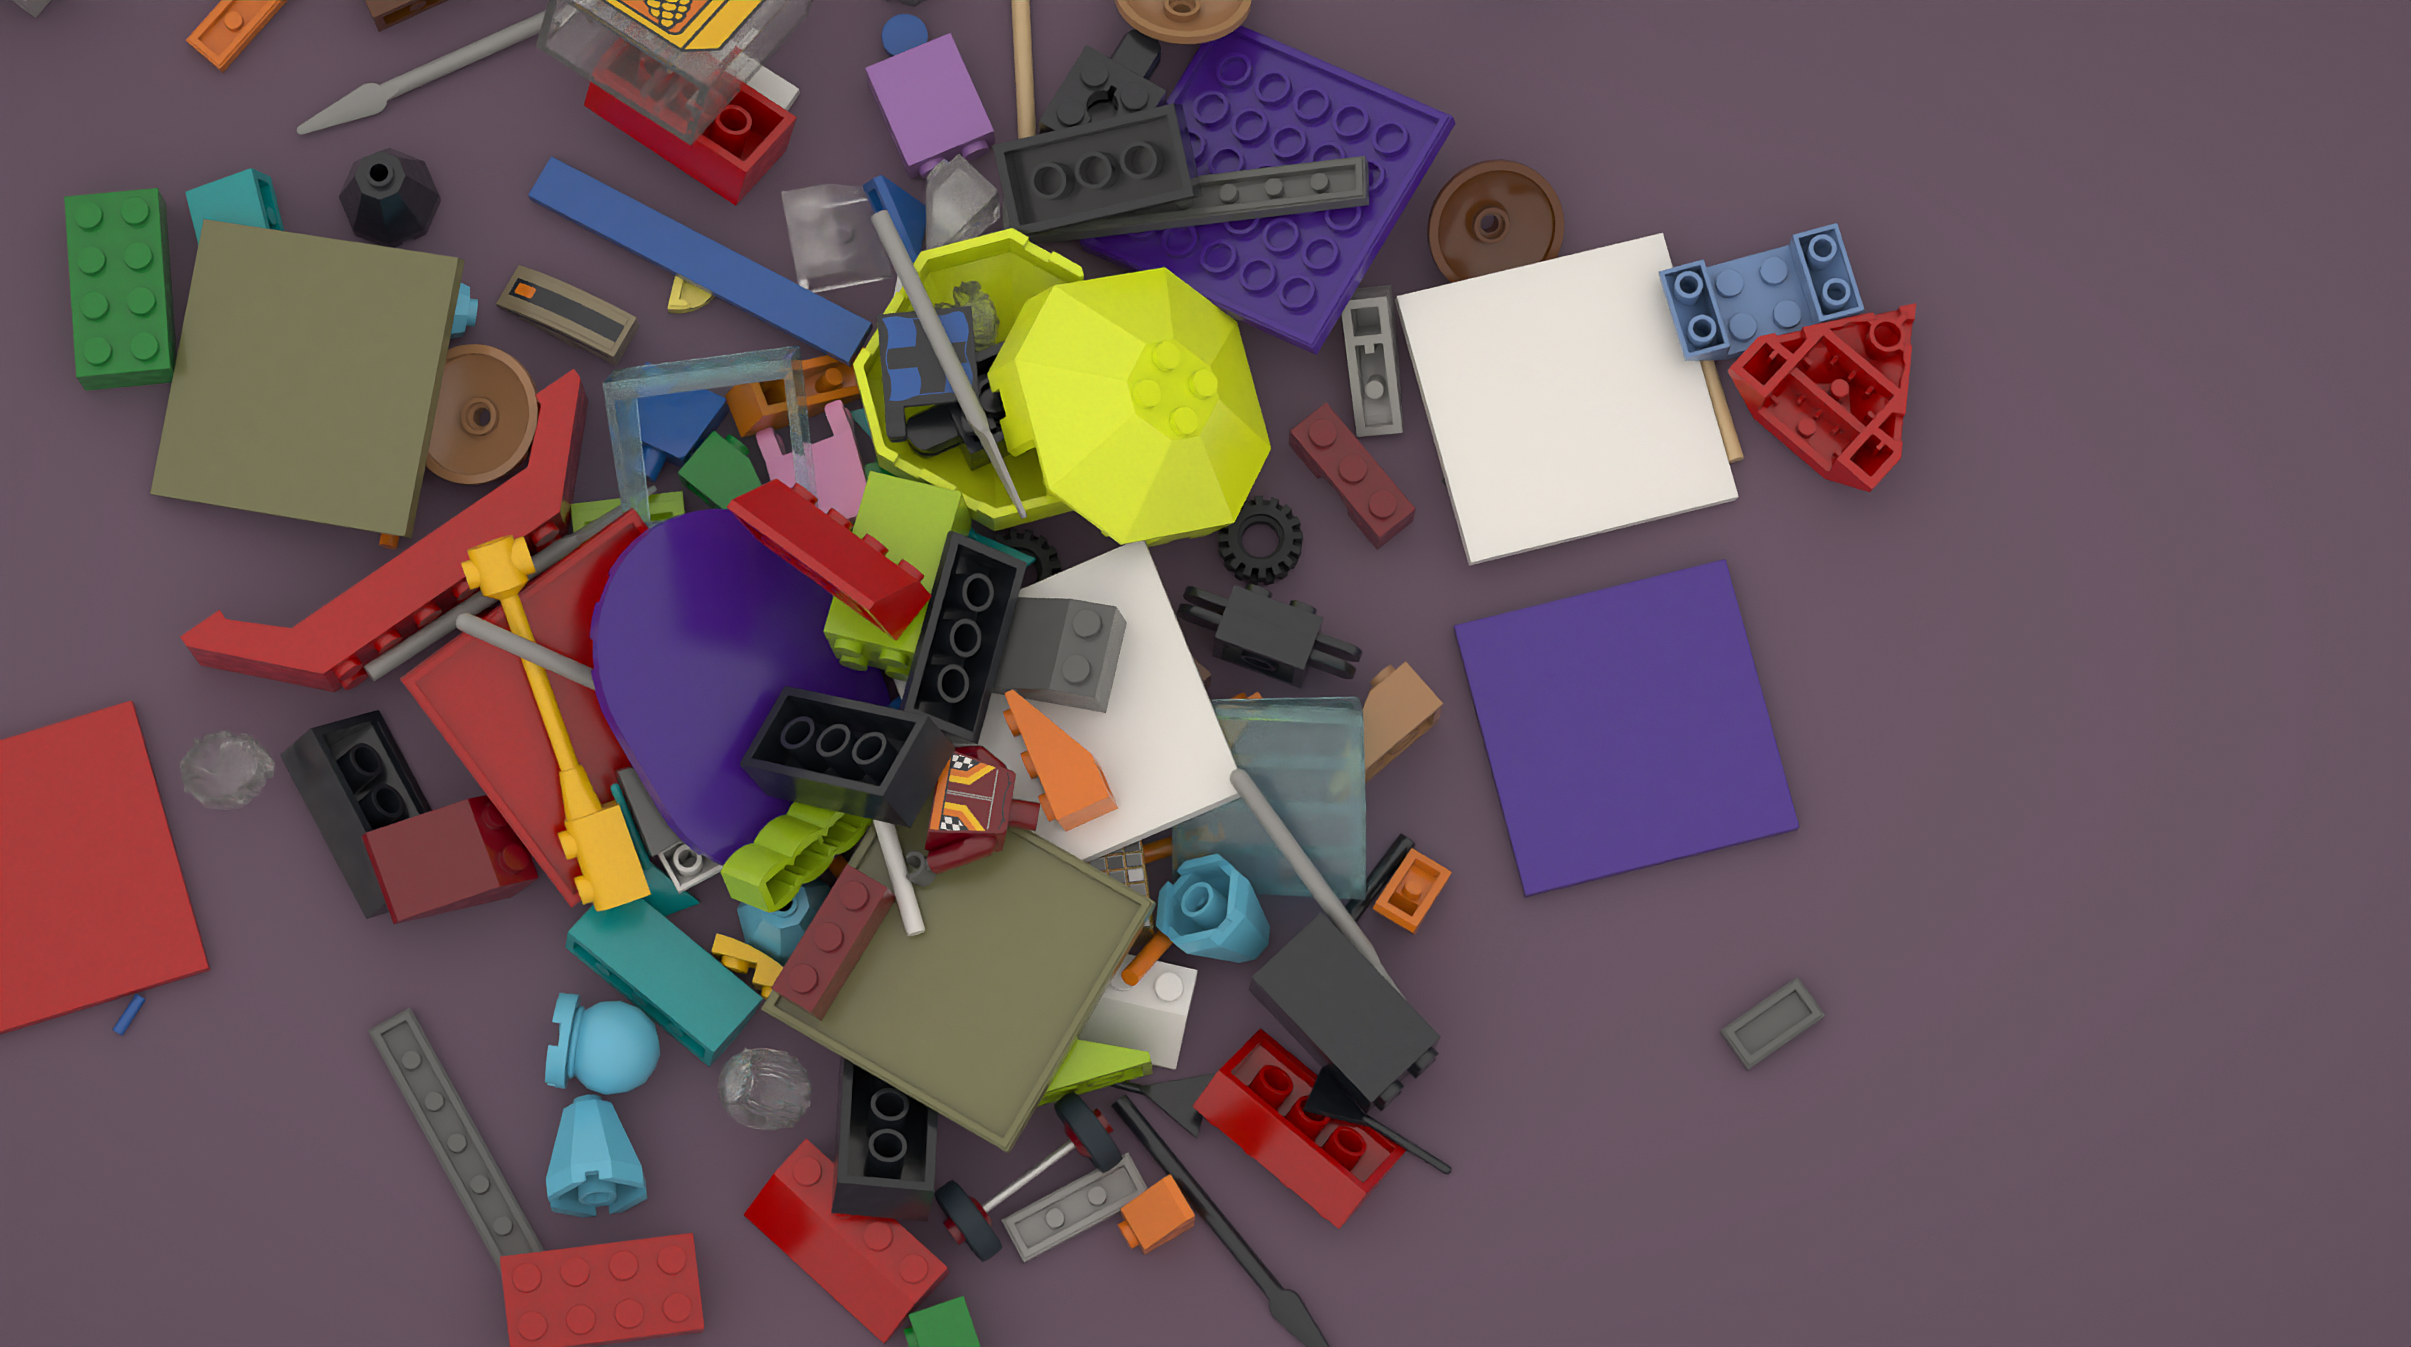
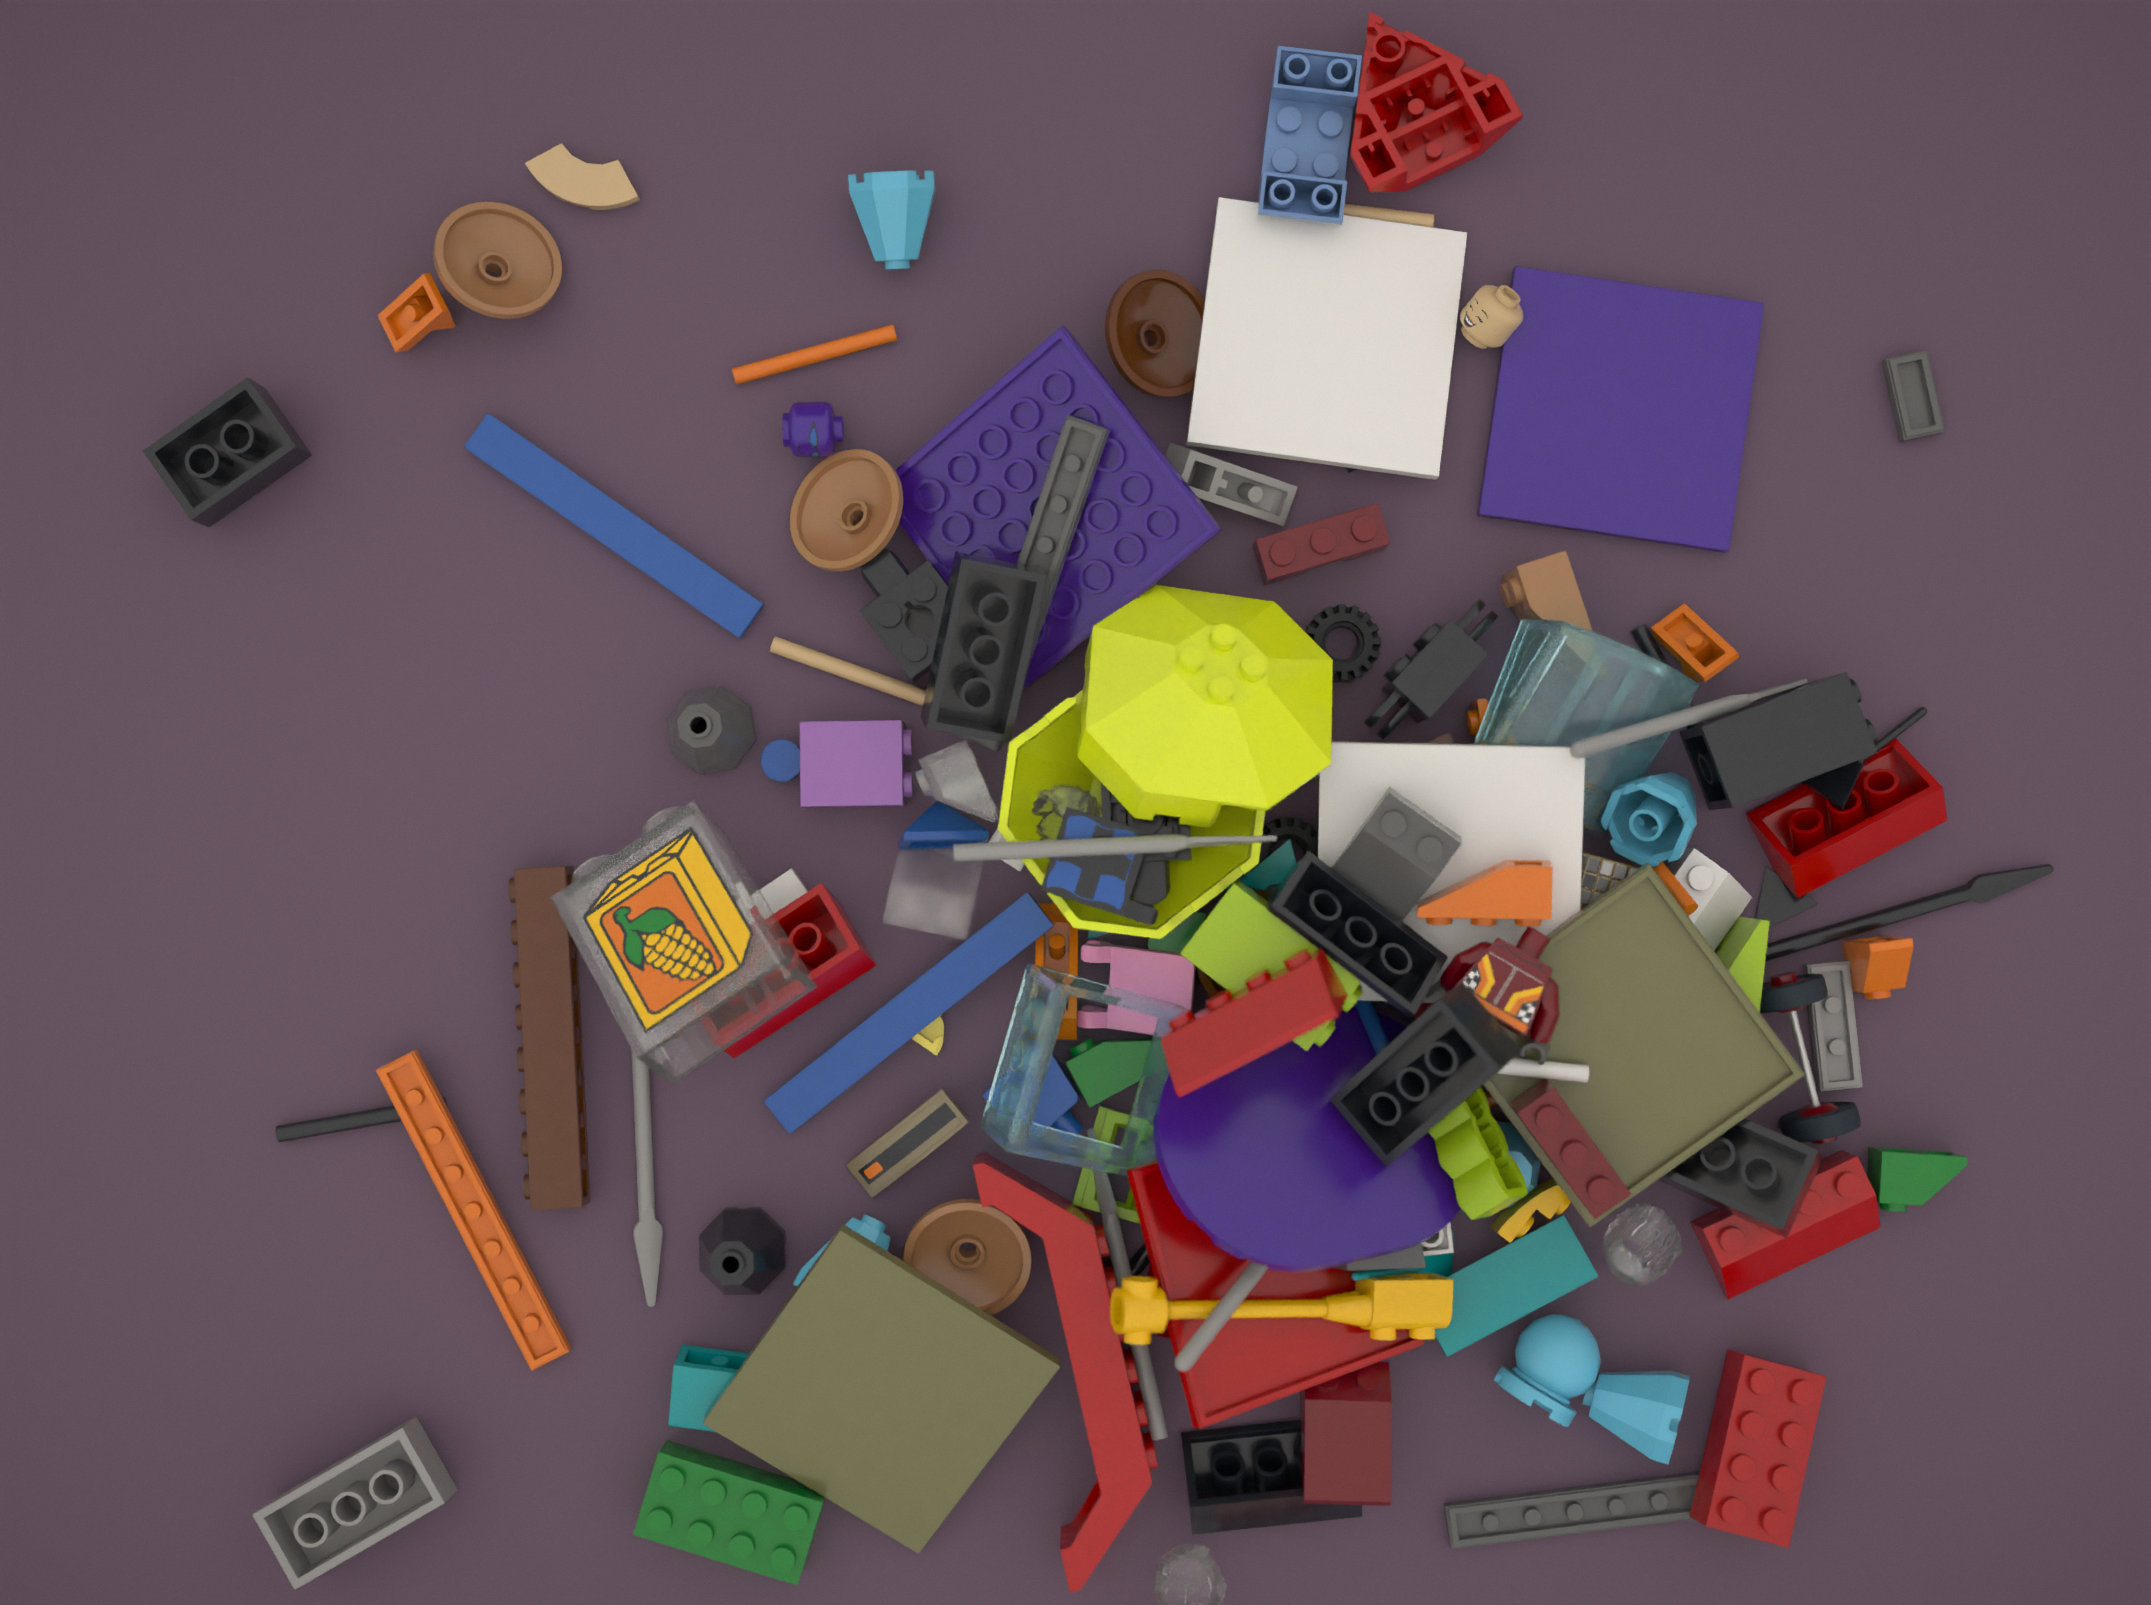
camera: 60 degrees left, 10 degrees up
(1659, 551) = (1491, 316): none -> tan head

